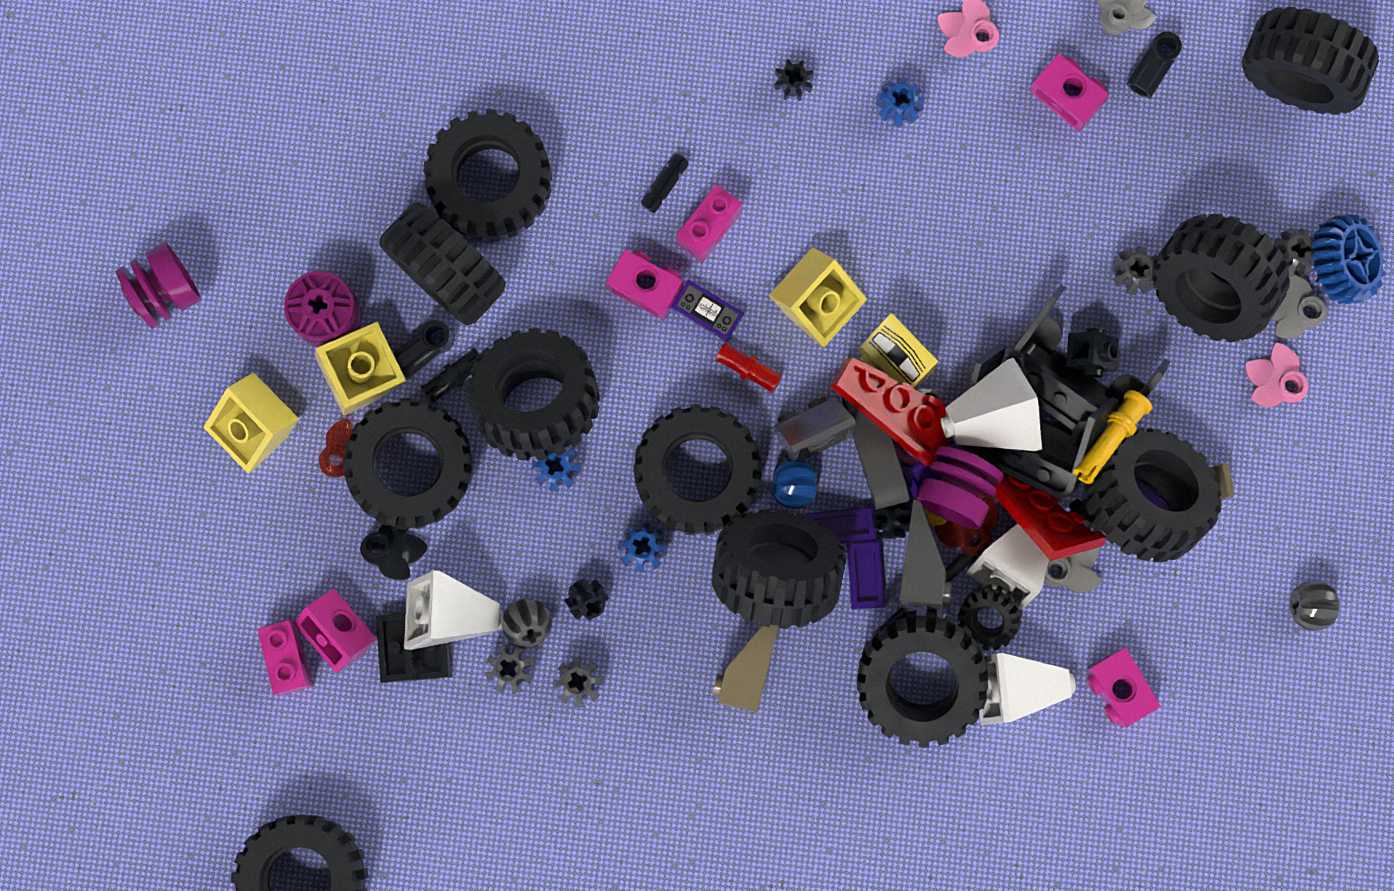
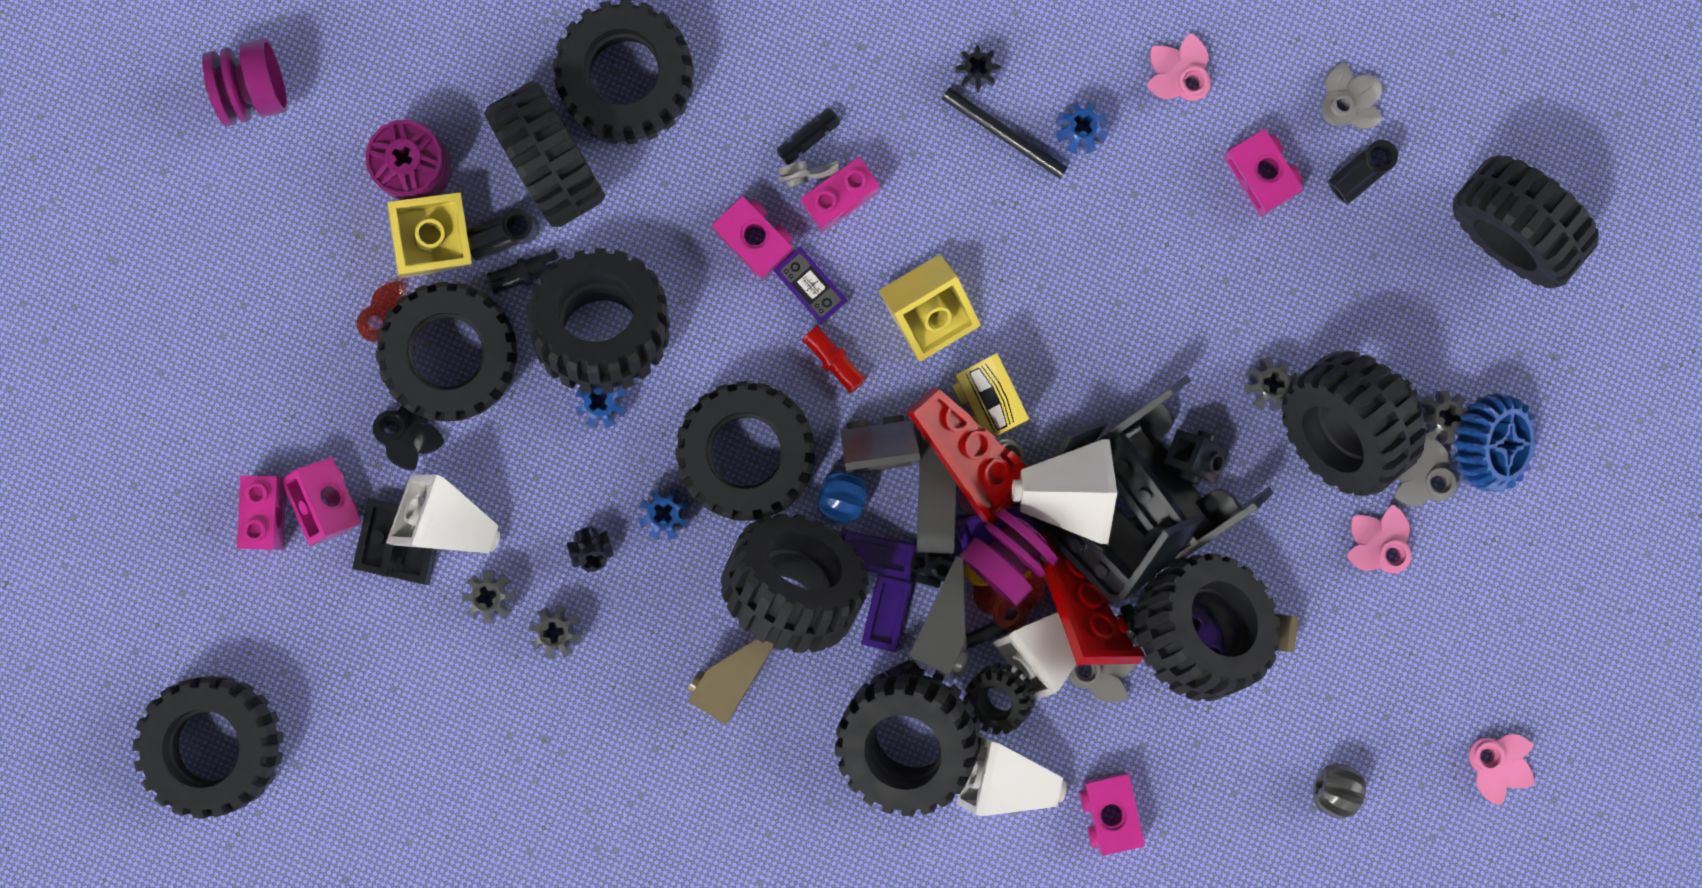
camera: 15 degrees right, 5 degrees up
(250, 422) = (299, 255): light yellow slope -> none
(526, 623) = (520, 554): dark grey piece -> none
(665, 217) = (798, 172): none -> light grey plate
(834, 128) = (1004, 133): none -> black bar
(1120, 425) = (1196, 546): yellow pin -> none

